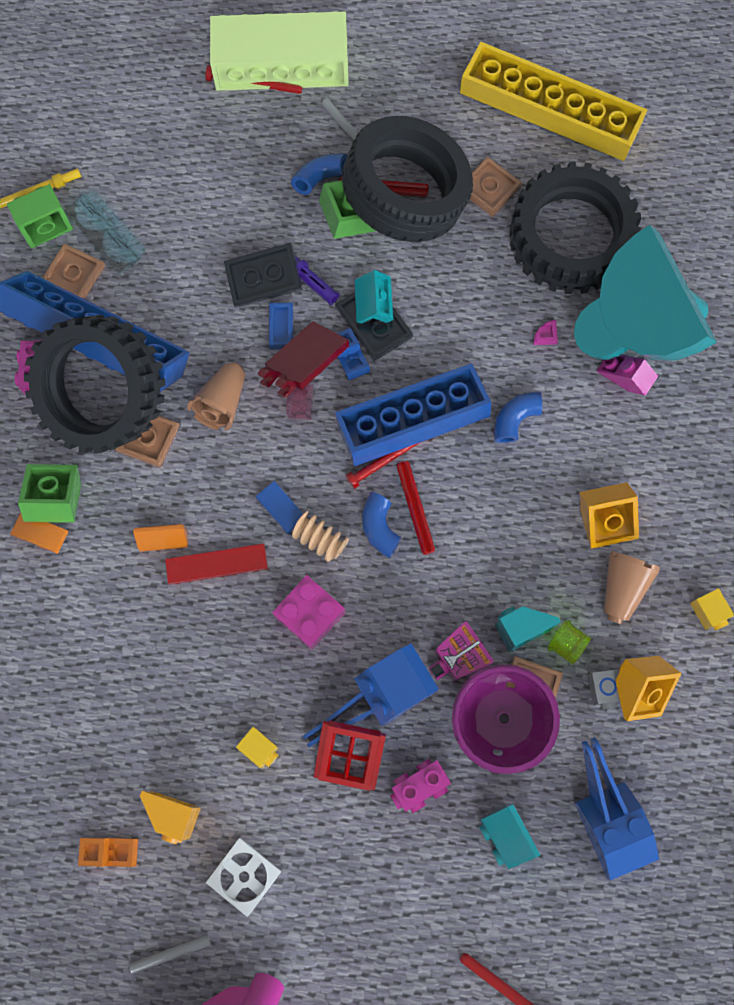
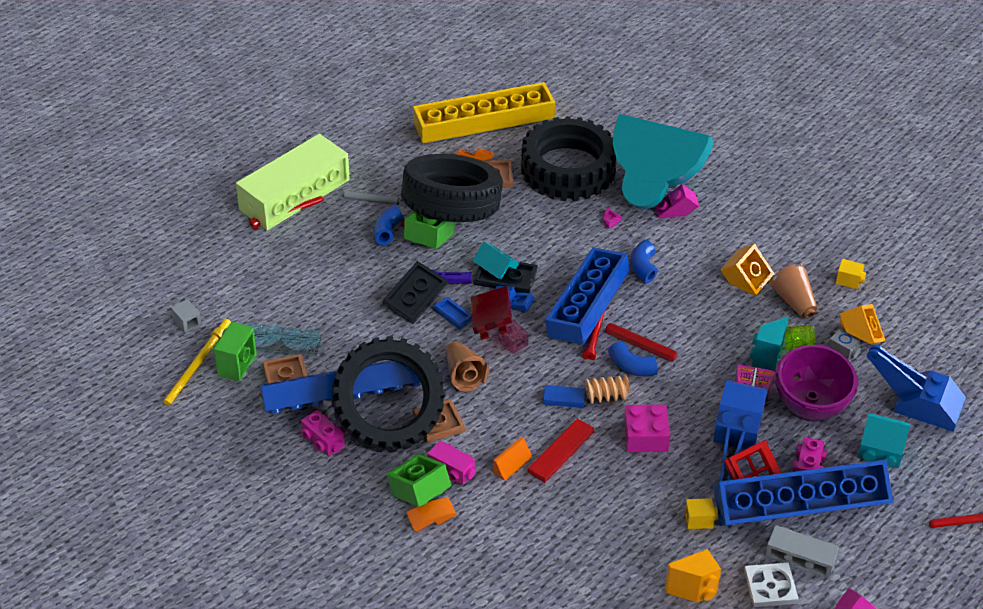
camera: 45 degrees left, 30 degrees down
(48, 139) = (186, 316): none -> light grey brick
(103, 504) = (458, 464): none -> dark pink brick
(304, 874) = (802, 551): none -> light grey brick
(365, 822) = (803, 492): none -> blue brick
(495, 153) = (481, 154): none -> orange slope

